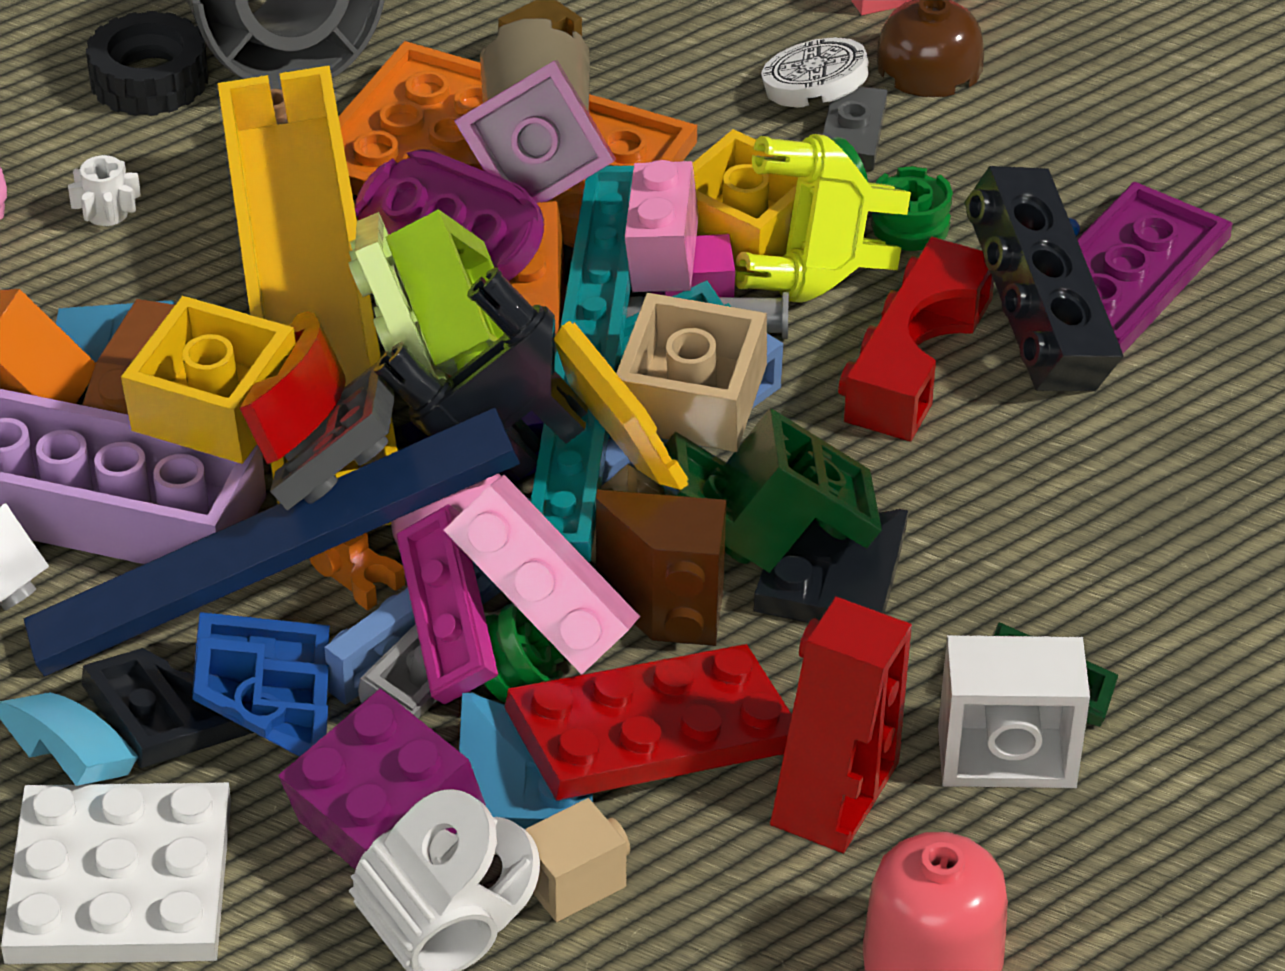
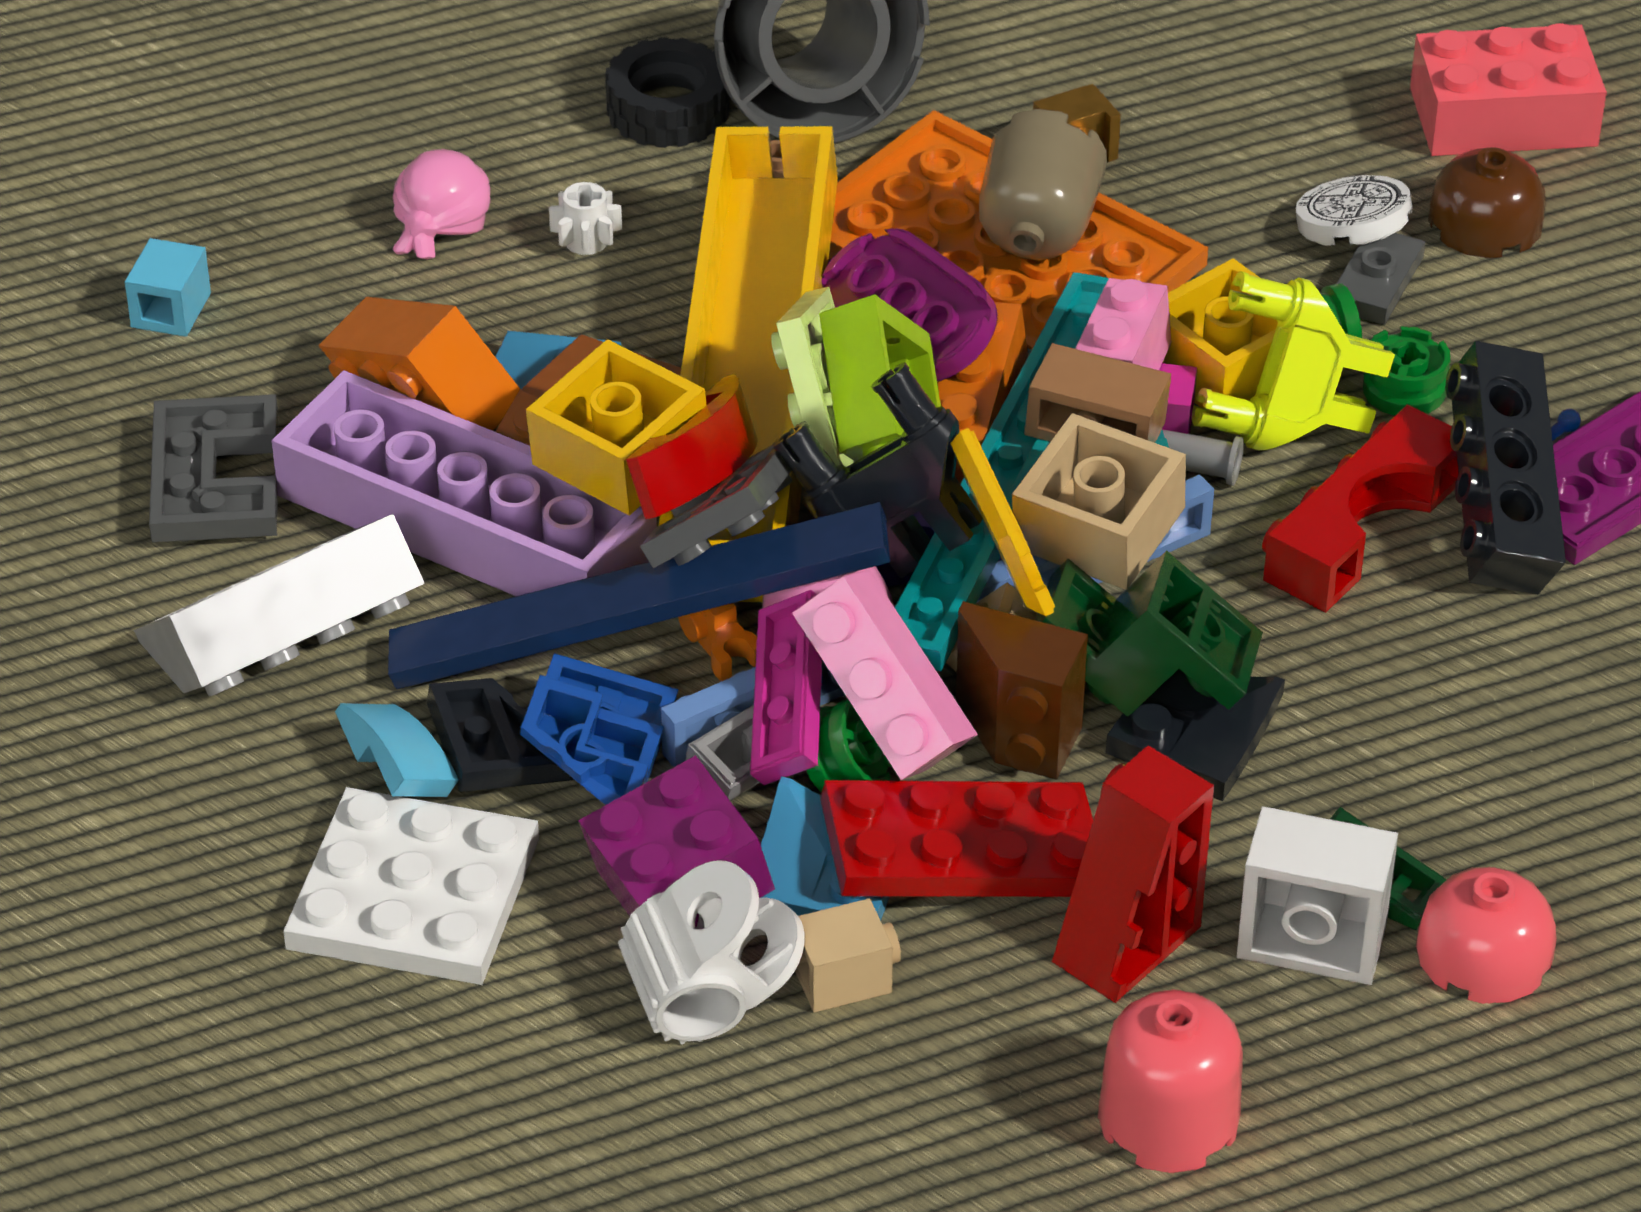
camera: 15 degrees right, 0 degrees up
(537, 135) = (1019, 233): brick -> none
(656, 265) = (1097, 389): none -> medium nougat brick
(1171, 718) = (1487, 935): none -> coral cylinder

